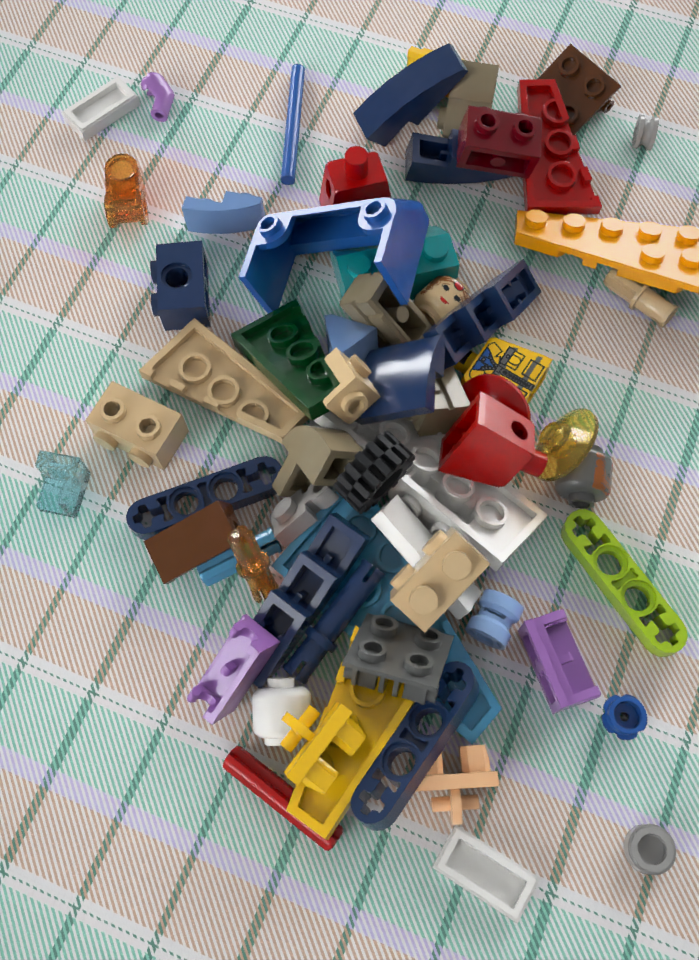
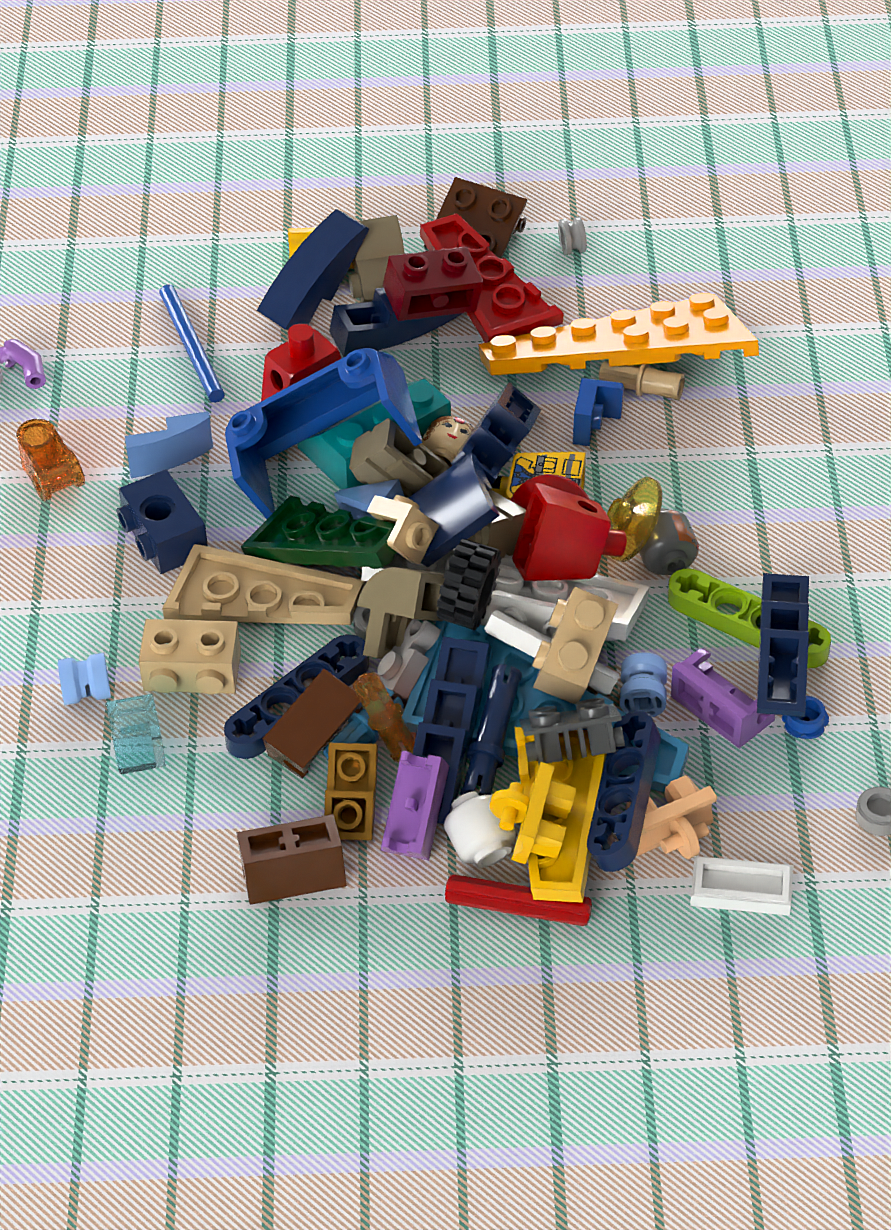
camera: 25 degrees left, 20 degrees down
(41, 411) = (84, 678): none -> light blue wheel
(113, 667) = (292, 859): none -> reddish brown hinge
(198, 619) = (352, 789): none -> pearl gold slope
(587, 304) = (595, 401): none -> blue bracket
(635, 644) = (783, 645): none -> dark blue slope

